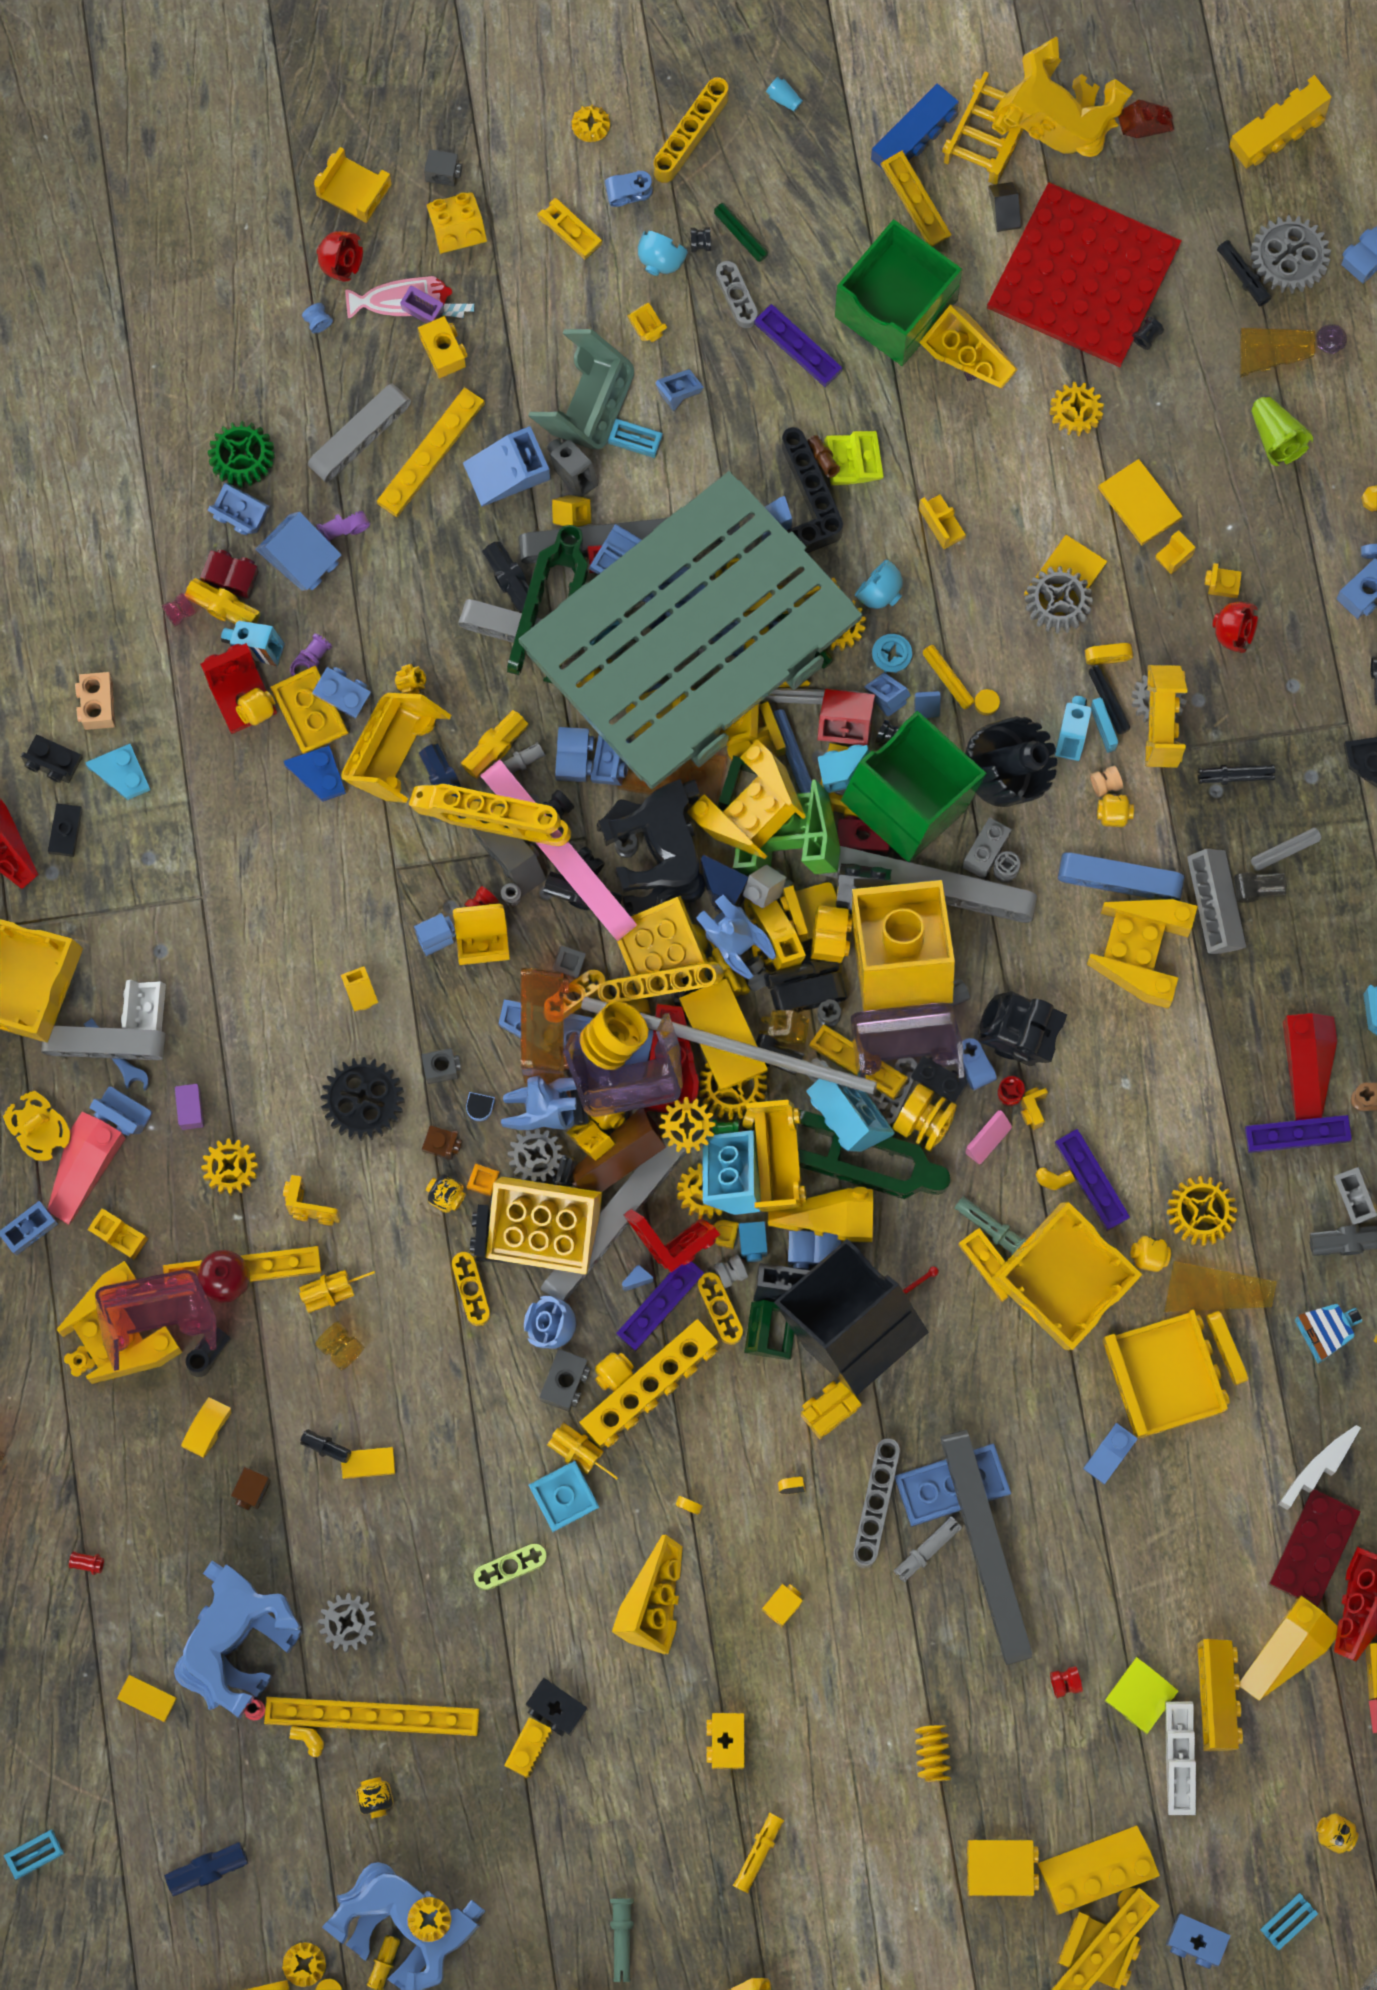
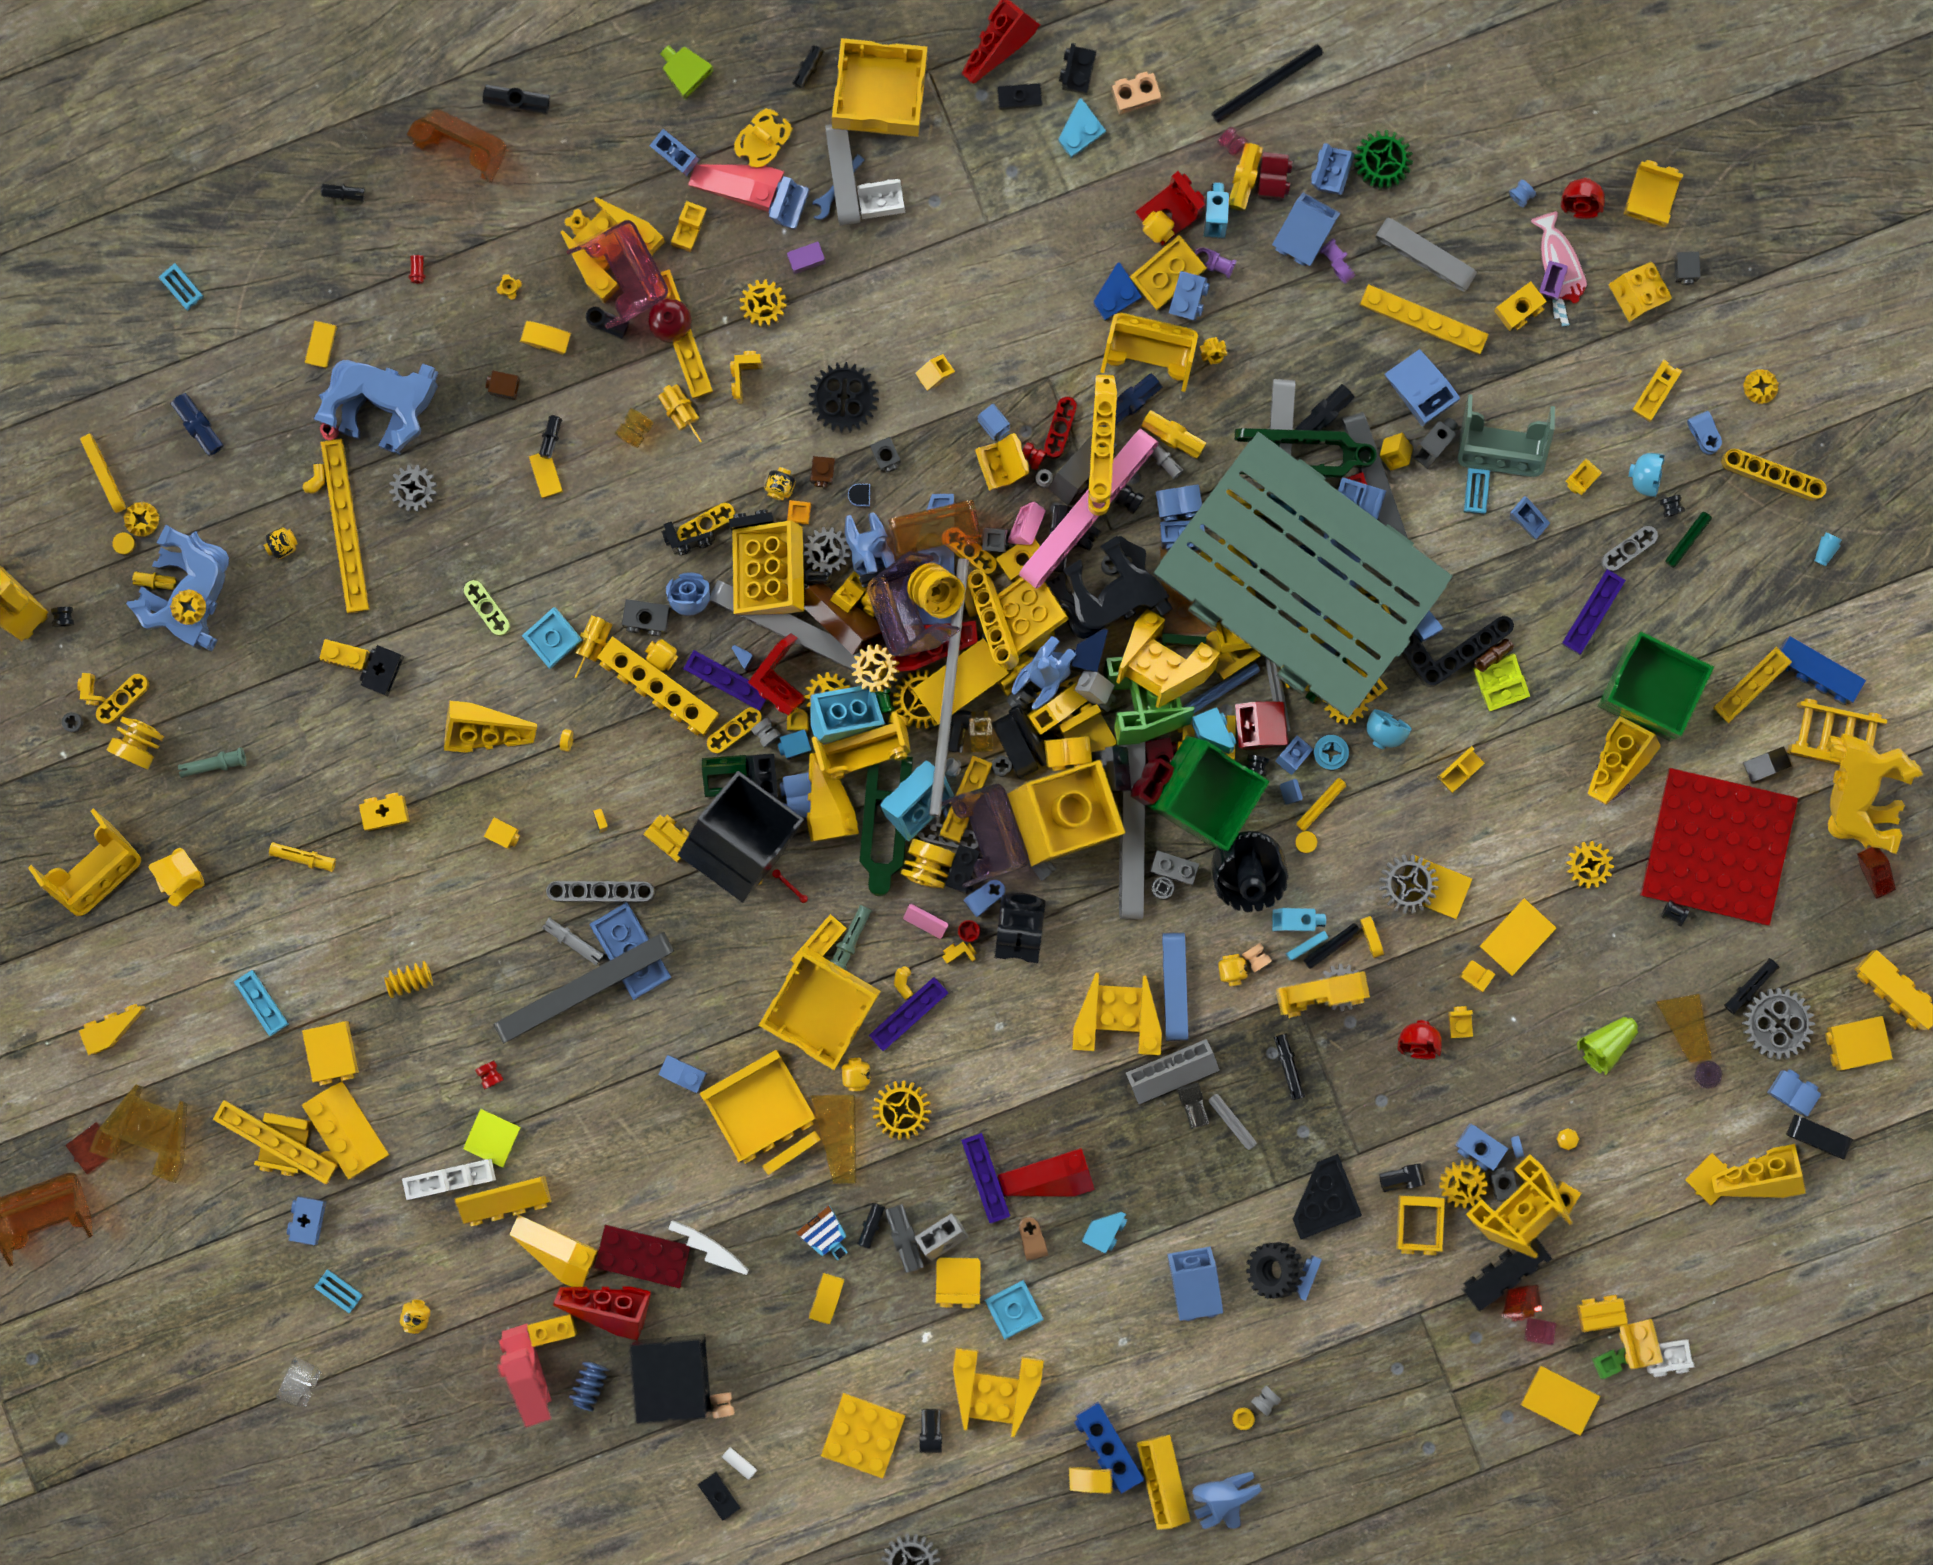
camera: 80 degrees right, 10 degrees up
(122, 559) = (1267, 83): none -> black axle
(127, 1458) = (515, 285): none -> yellow plate
(458, 877) = (1061, 444): none -> red beam
(480, 1327) = (685, 546): none -> black bracket
(559, 925) = (1026, 524): none -> bright pink slope
(596, 955) = (1008, 563): none -> yellow brick
(884, 842) = (1150, 785): none -> dark red brick
(923, 1942) = (261, 1003): none -> medium azure tile
(1328, 177) = (1858, 1043): none -> yellow brick
(1328, 1275) = (871, 1225): none -> black pin

